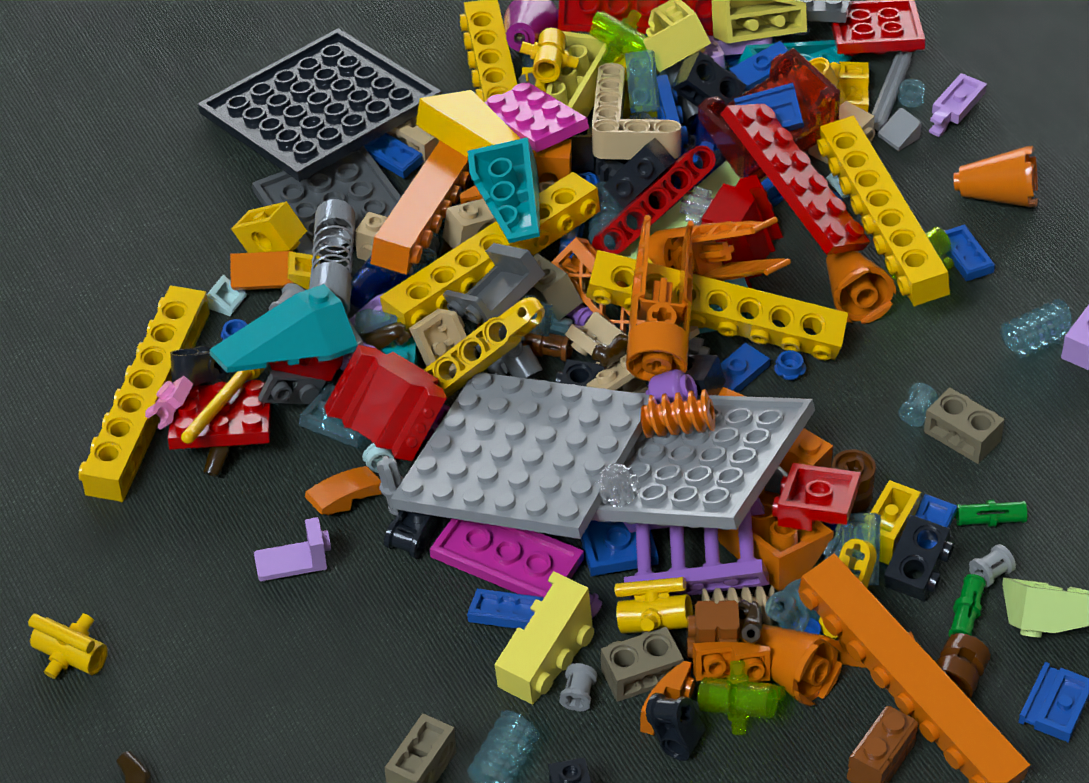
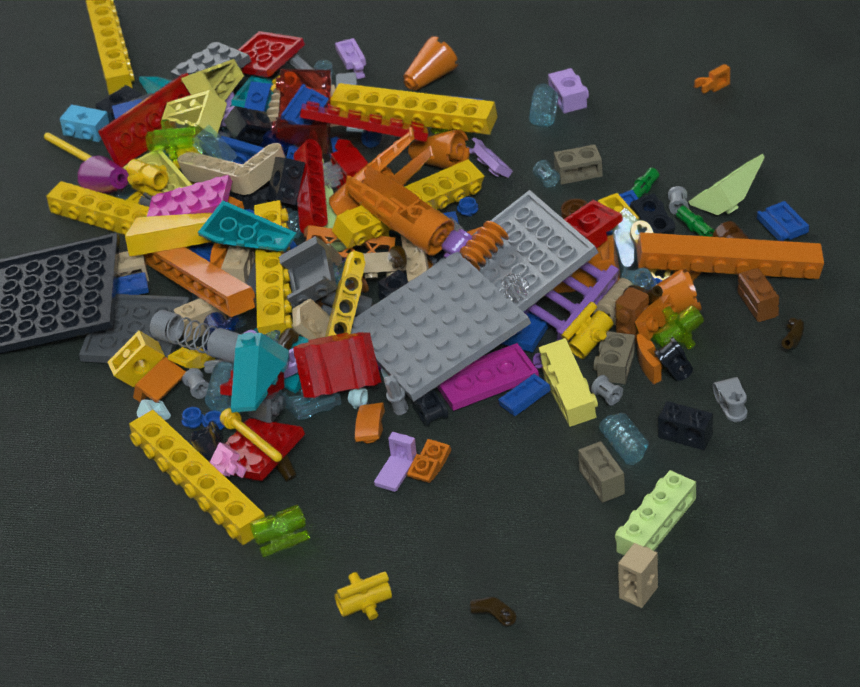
camera: 50 degrees left, 5 degrees down
(113, 511) = (279, 530): none -> clear neon green pin
(323, 586) = (430, 461): none -> orange slope
(893, 336) = (490, 159): none -> lavender plate

